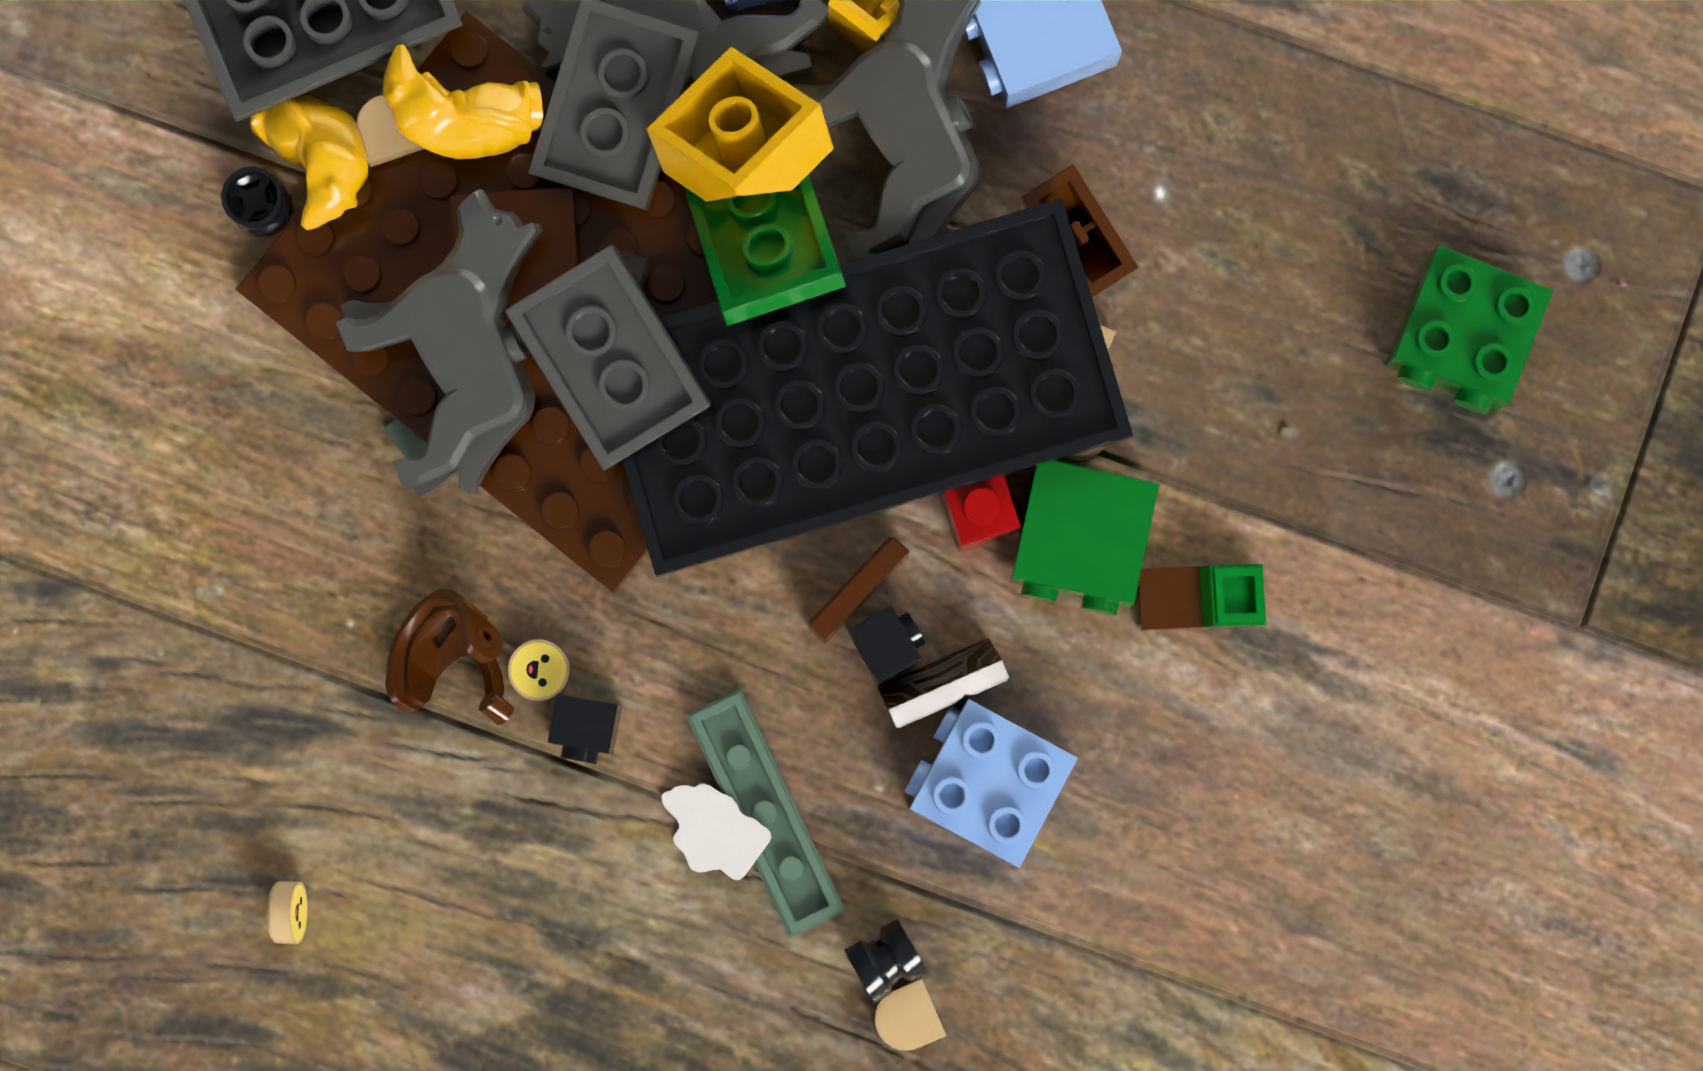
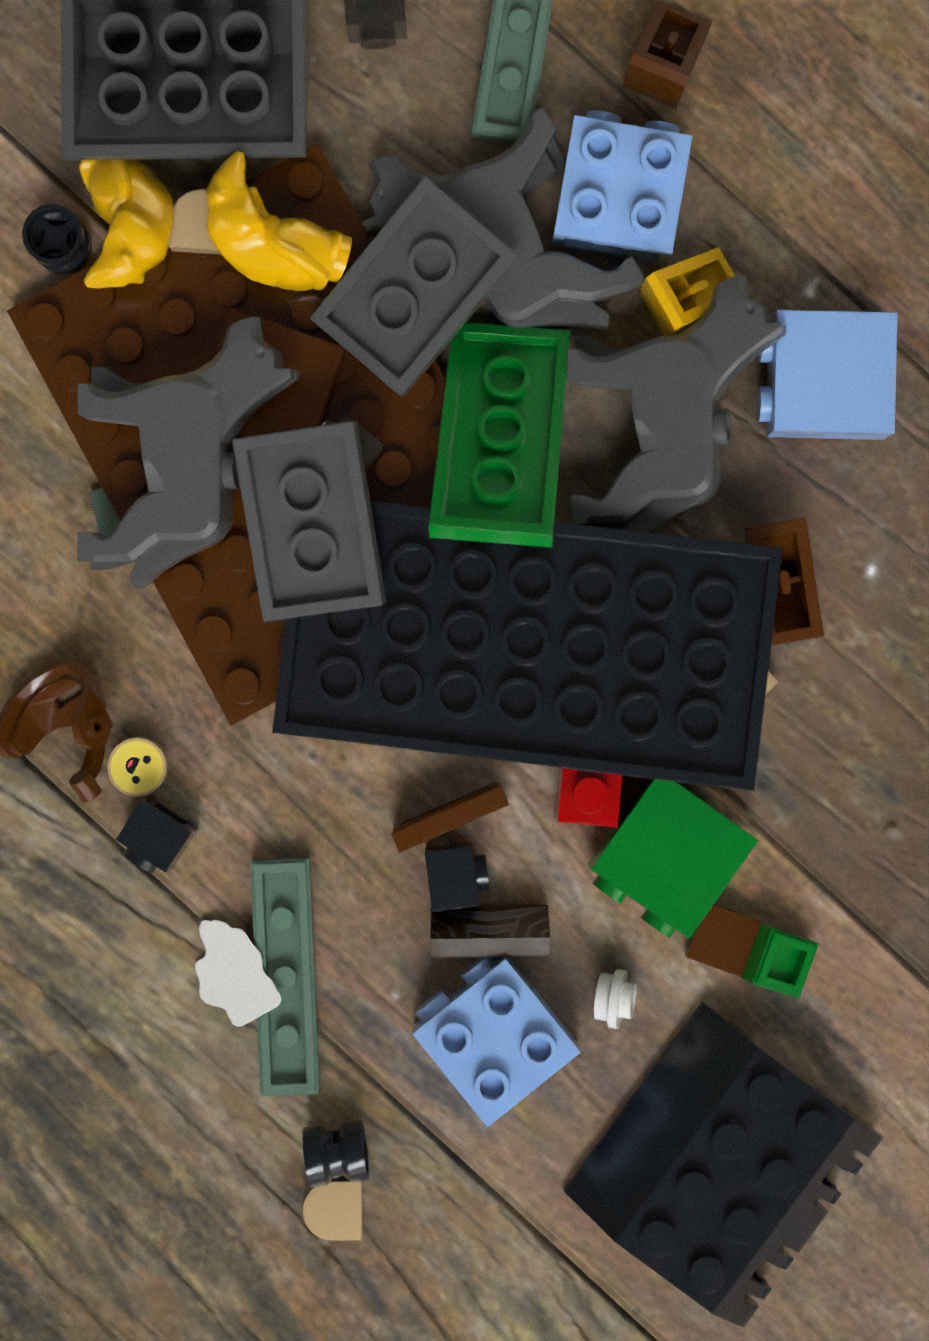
camera: 30 degrees right, 5 degrees up
(740, 132) = (515, 364): yellow slope -> none
(1090, 697) = (614, 998): none -> white plate
(1260, 813) = (718, 1166): none -> black slope

